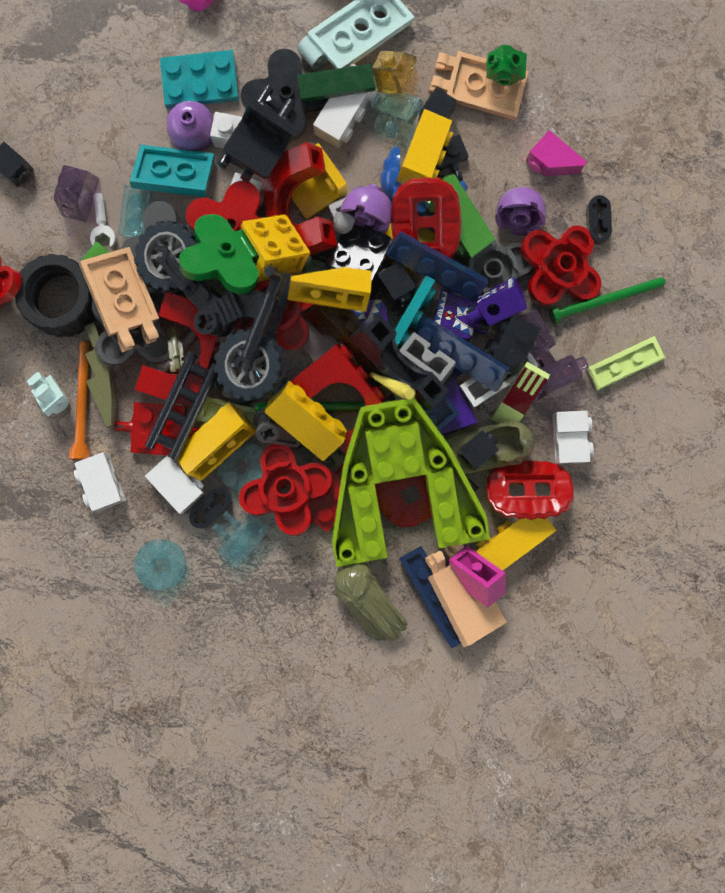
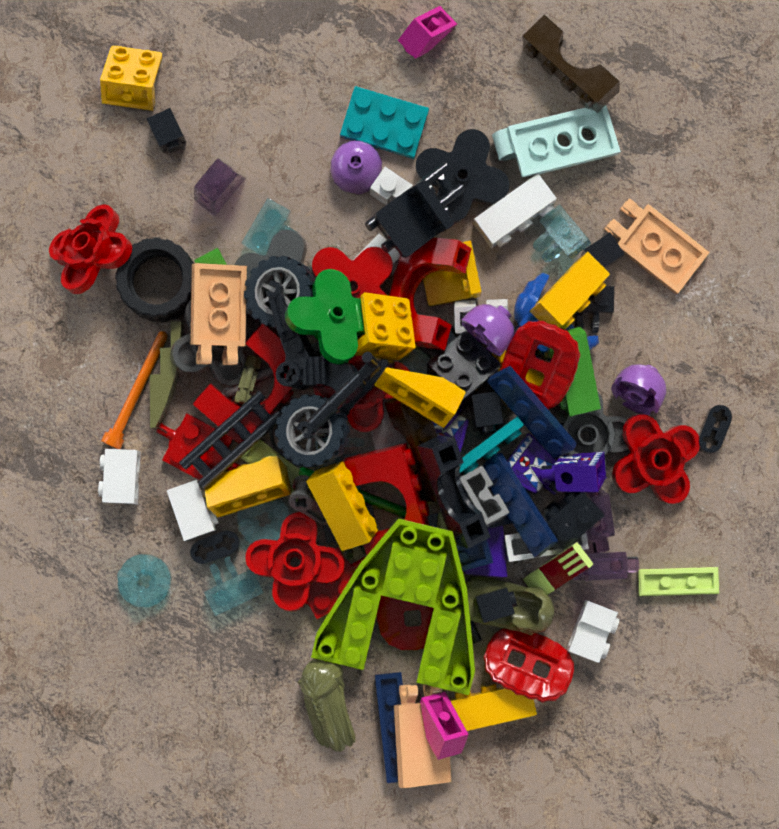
camera: 25 degrees right, 0 degrees up
(48, 394) = (108, 369): light aqua hips -> none
(102, 229) = (227, 231): white piece -> none
(172, 170) = (319, 204): teal plate -> none
(336, 82) = (514, 188): dark green tile -> none
(343, 222) = (460, 331): light grey hinge -> none
(393, 70) = (575, 198): clear yellow slope -> none
(399, 388) = (443, 515): light yellow animal -> none
(506, 65) = (687, 241): green brick -> none
(554, 157) = (696, 349): dark pink slope -> none
(557, 314) = (686, 510): green bar -> none

